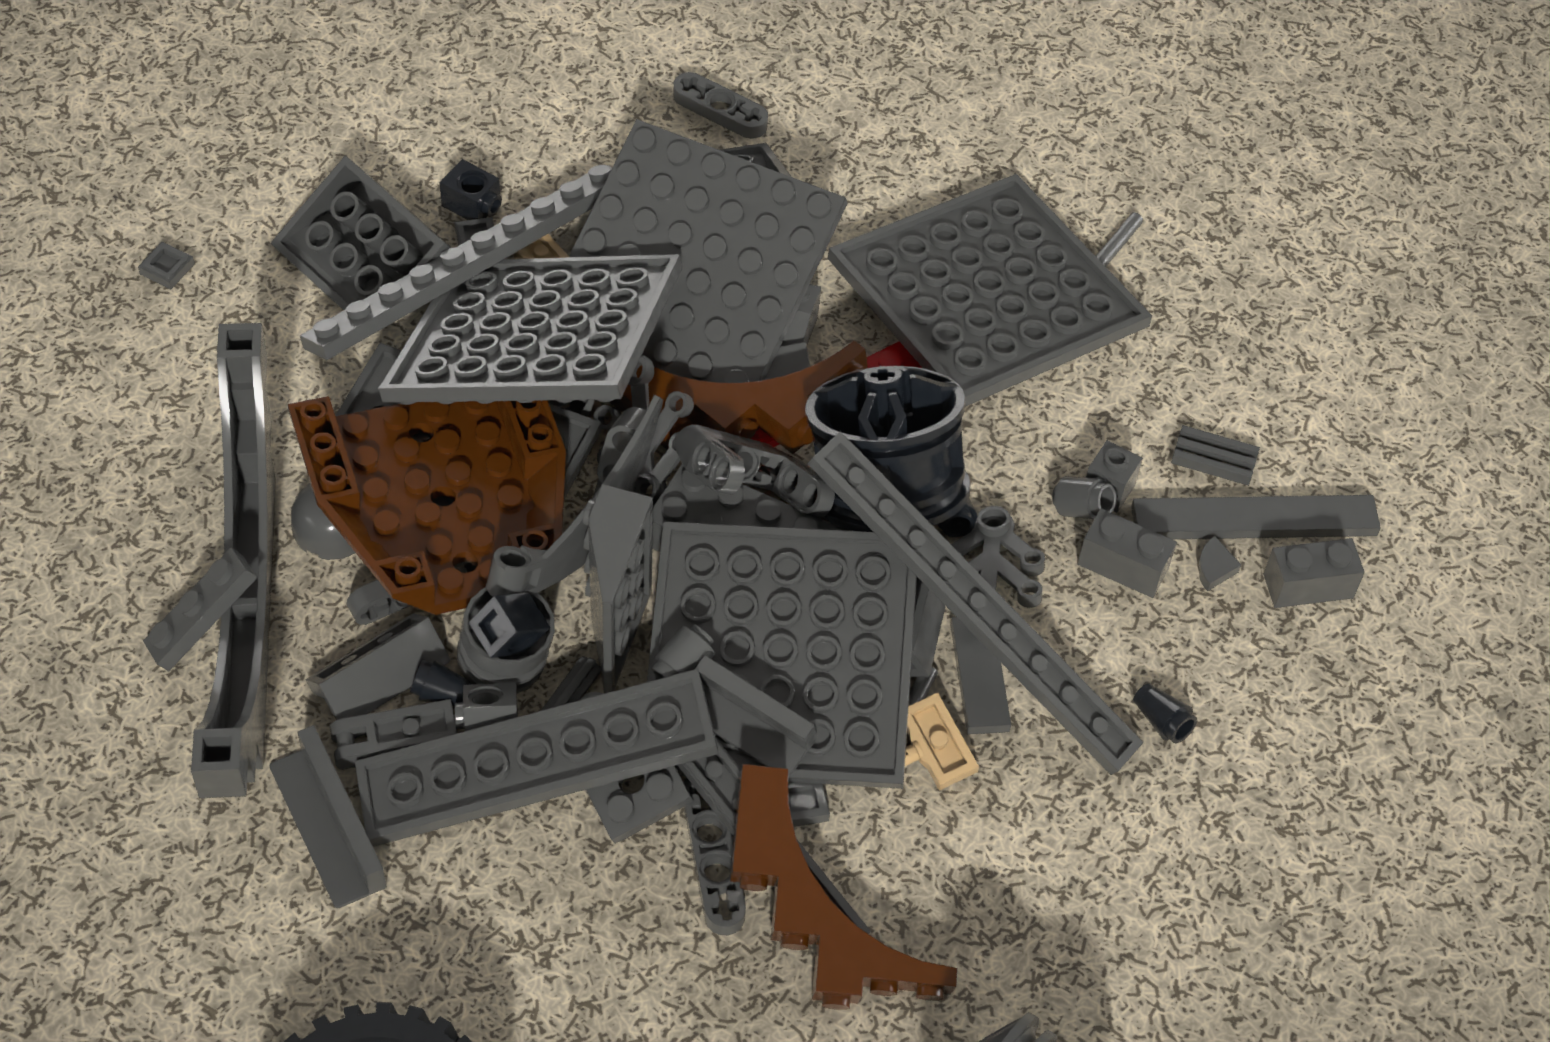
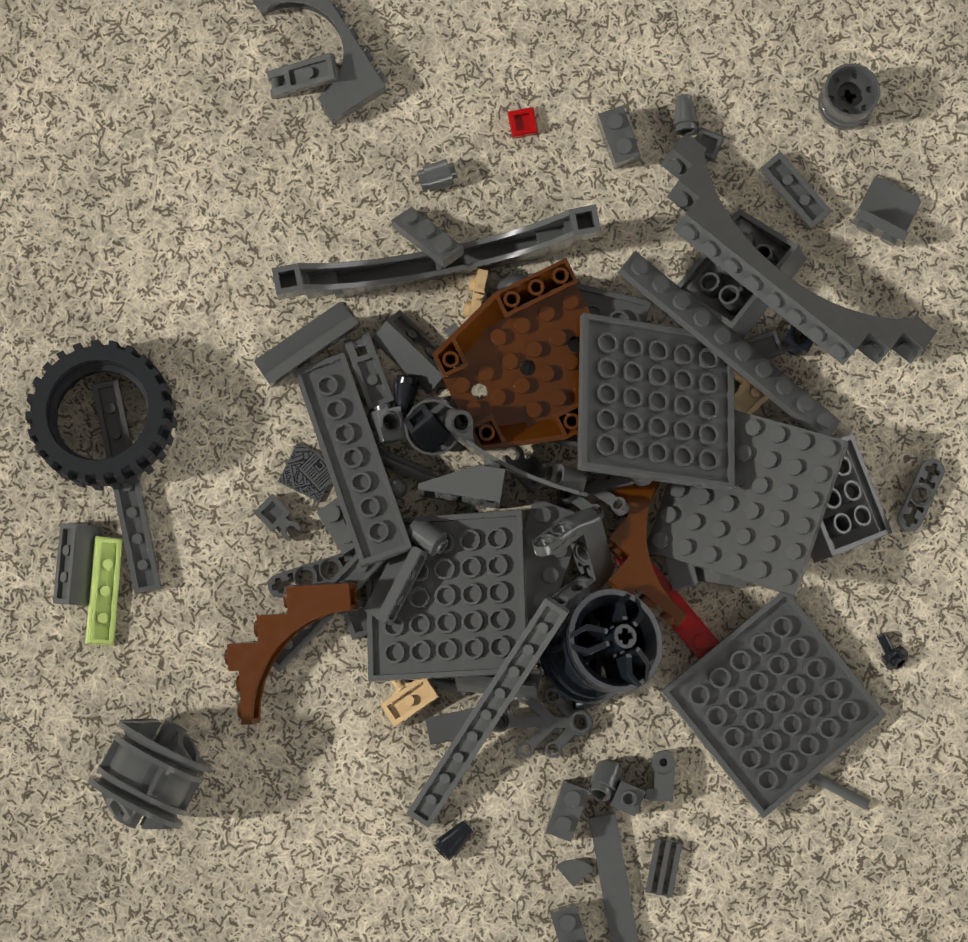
camera: 85 degrees right, 30 degrees up
(57, 480) = (522, 122): none -> red tile
(104, 596) = (437, 175): none -> dark grey brick
(116, 280) = (685, 116): none -> dark grey cone
(121, 356) = (618, 137): none -> dark grey brick
(151, 89) = (855, 84): none -> dark grey wheel
(264, 174) = (795, 190): none -> dark grey plate
(289, 239) = (827, 324): none -> dark grey arch
(313, 564) = (478, 286): none -> tan plate
(325, 84) = (886, 212): none -> dark grey bracket
(542, 849) = (306, 473): none -> dark grey piece
(607, 902) = (275, 515): none -> dark grey plate
(937, 160) = (894, 657): none -> black plate
(1079, 431) = (663, 777): none -> dark grey leg

